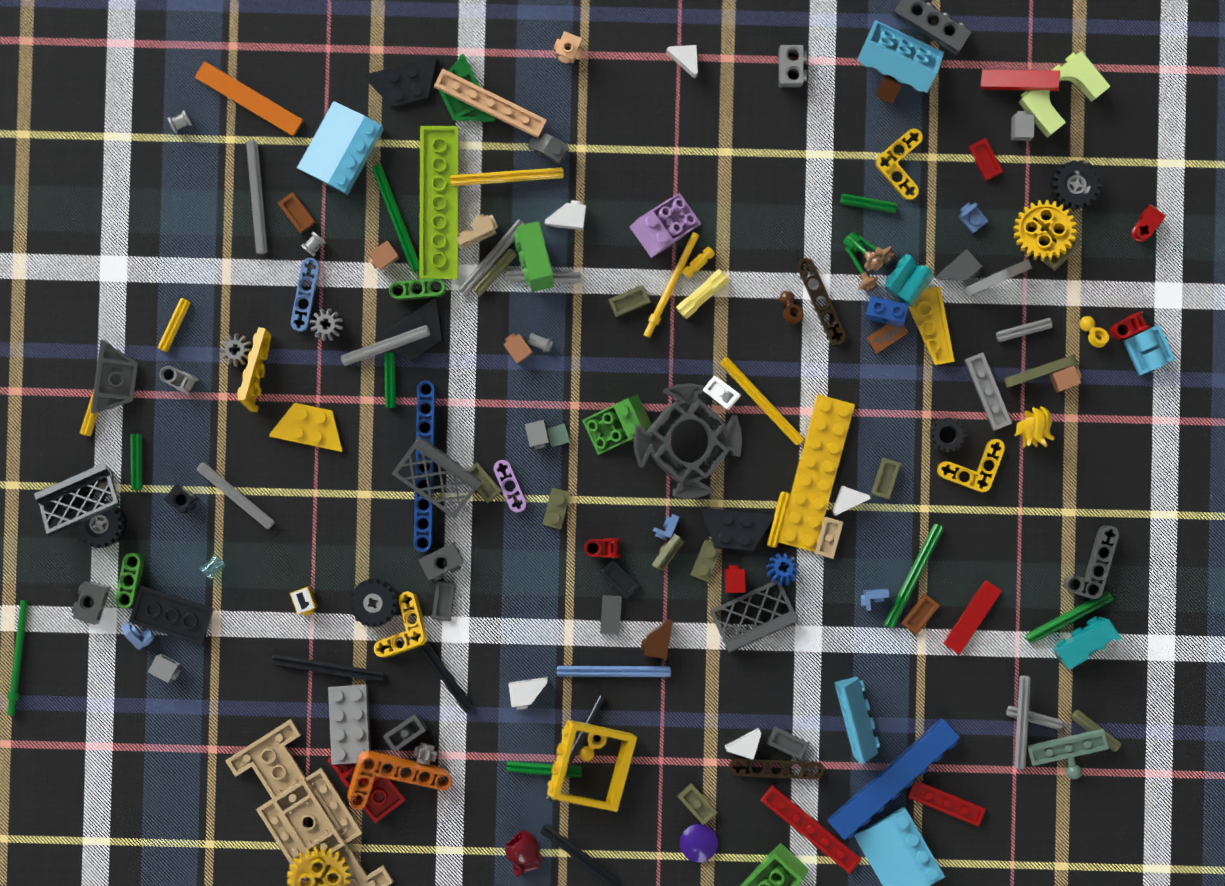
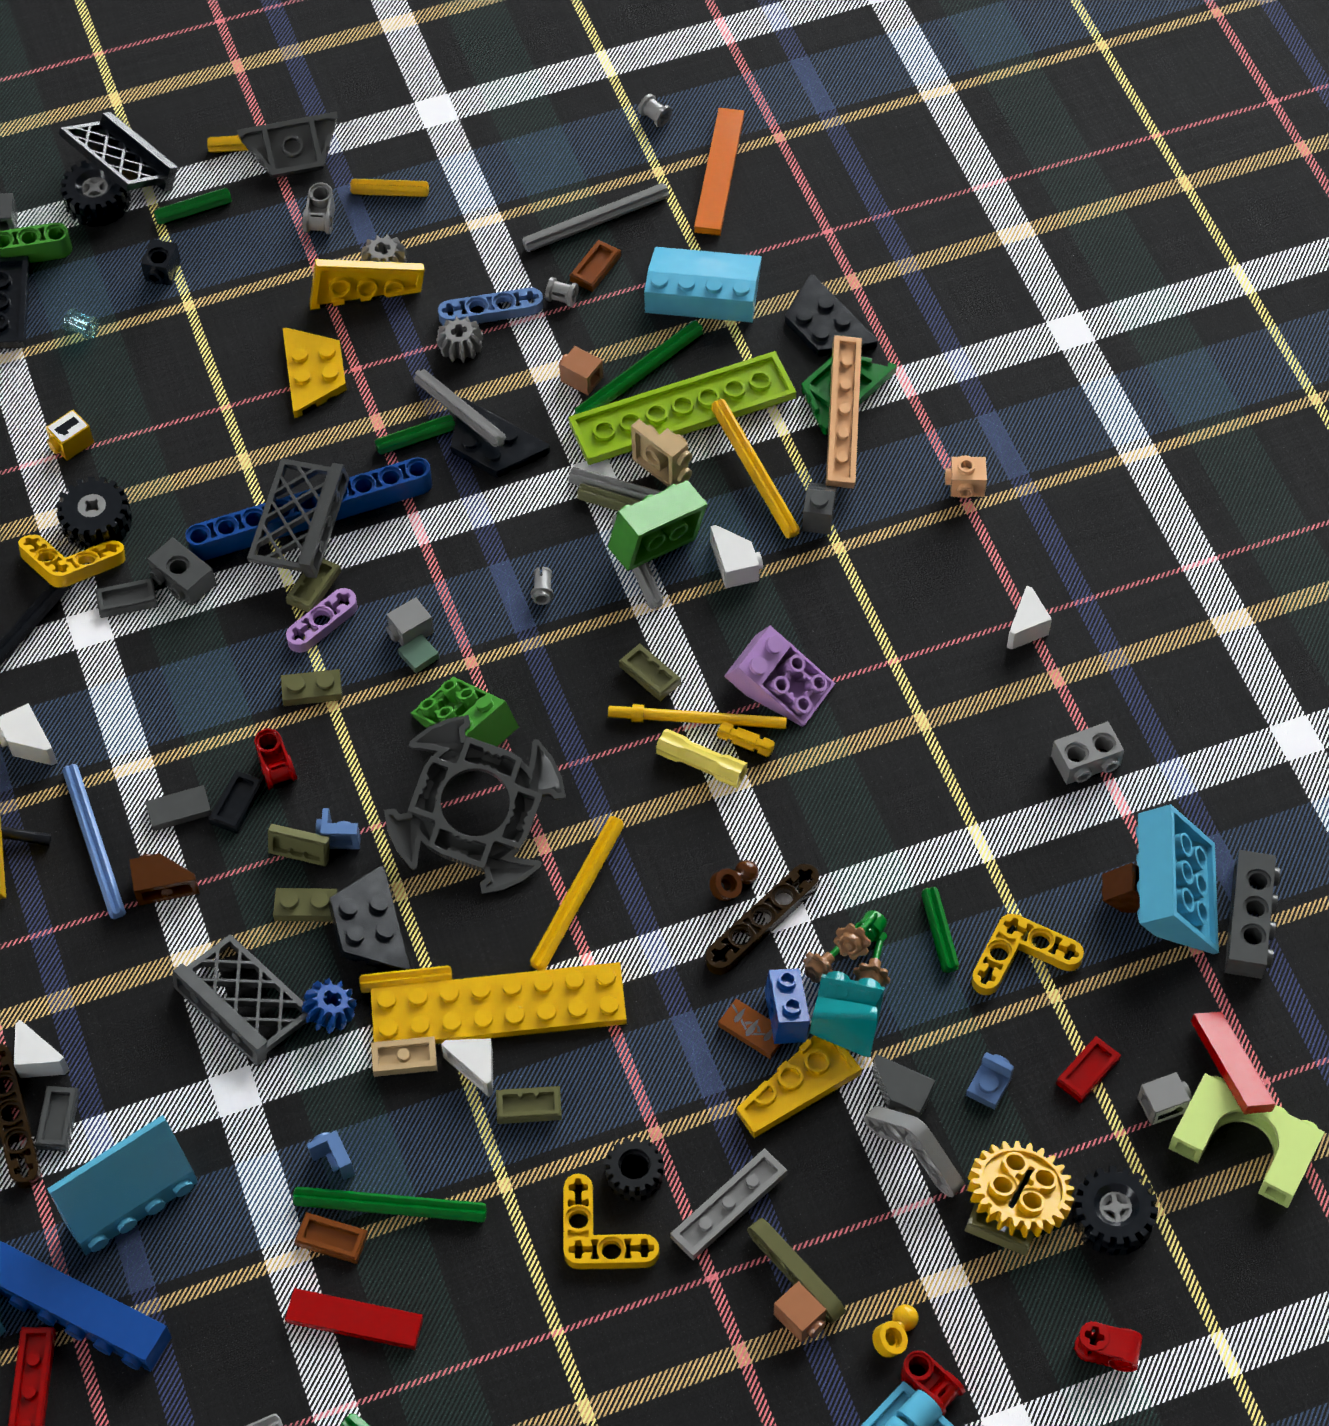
camera: 65 degrees right, 30 degrees down
(235, 495) = (187, 320): light grey axle -> none
(408, 289) = (553, 421): bright green beam -> none
(517, 347) = (521, 560): nougat brick -> none
(721, 393) = (563, 832): white slope -> none
(734, 579) = (289, 948): red brick -> none
(1024, 329) = (851, 1224): light grey axle -> none
(1035, 427) = (700, 1290): yellow hair -> none

